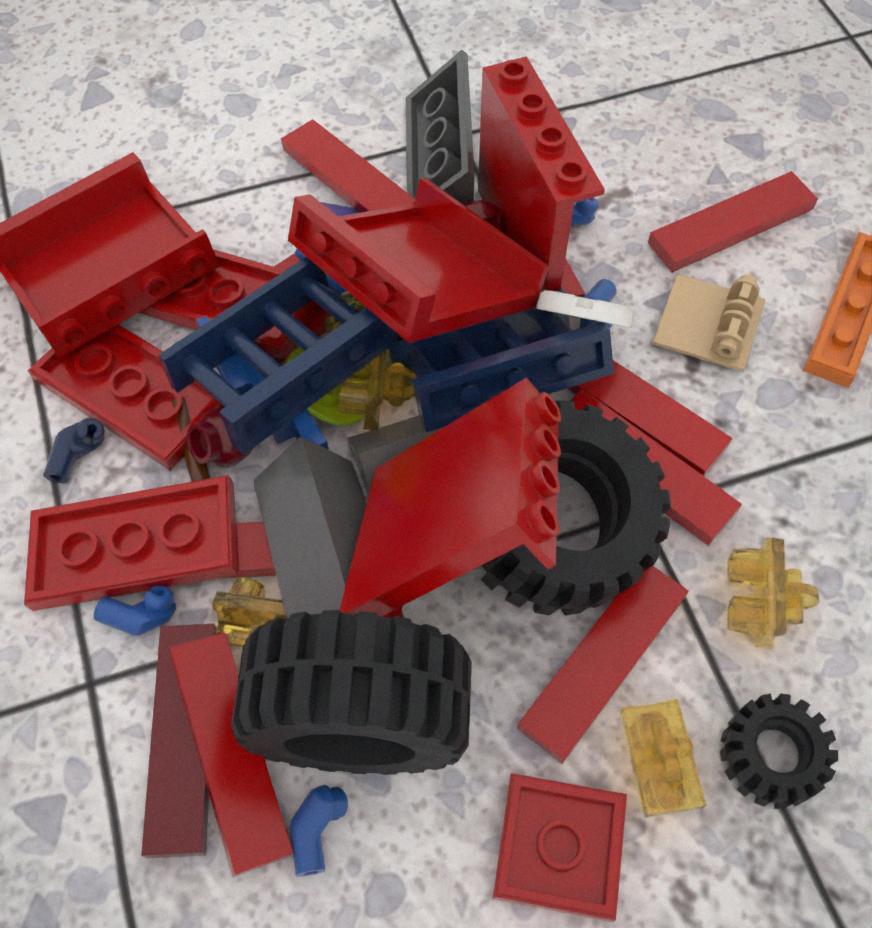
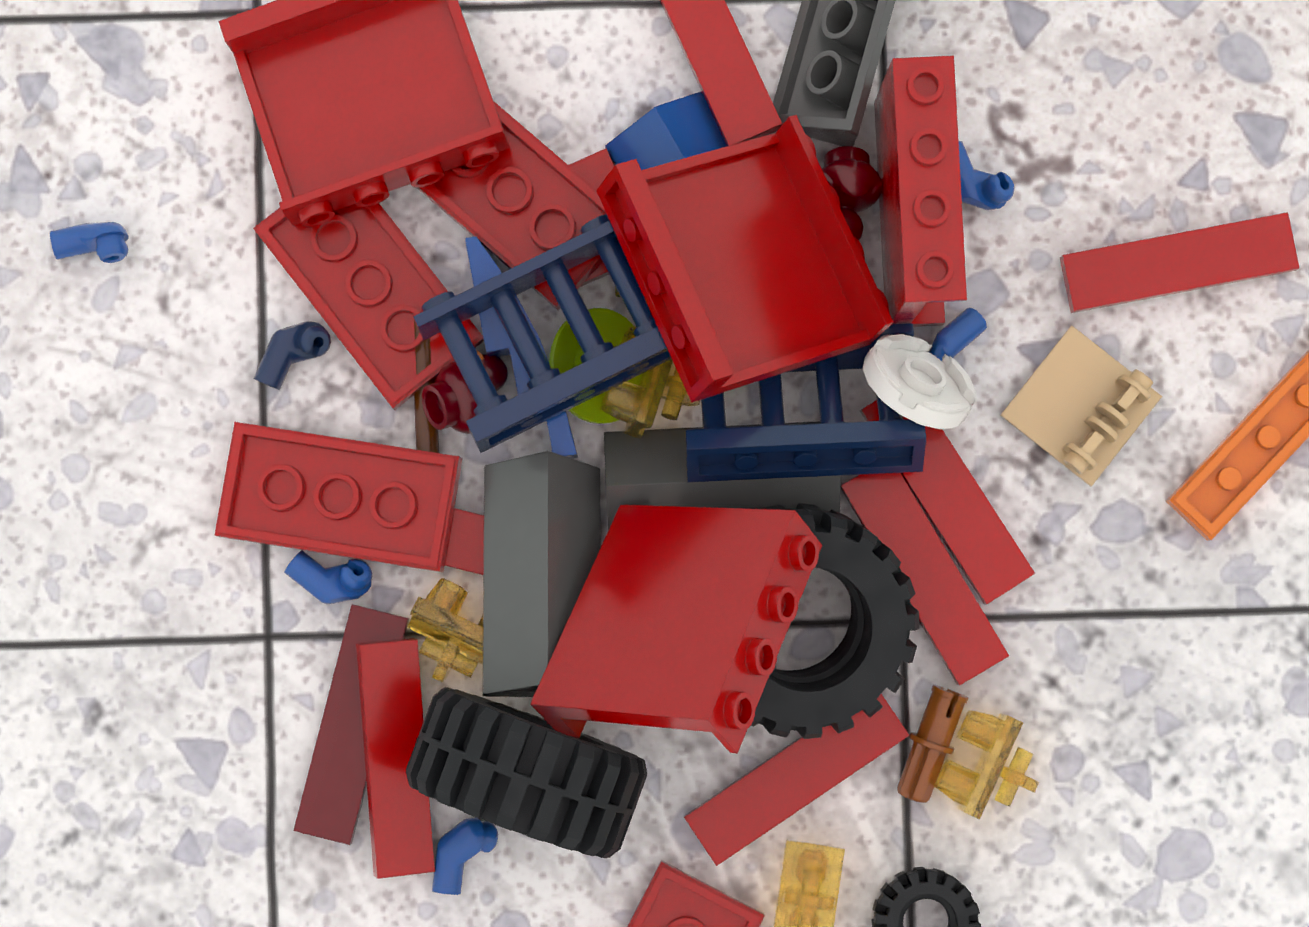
camera: 15 degrees right, 25 degrees up
(710, 592) = (931, 744): none -> dark orange axle

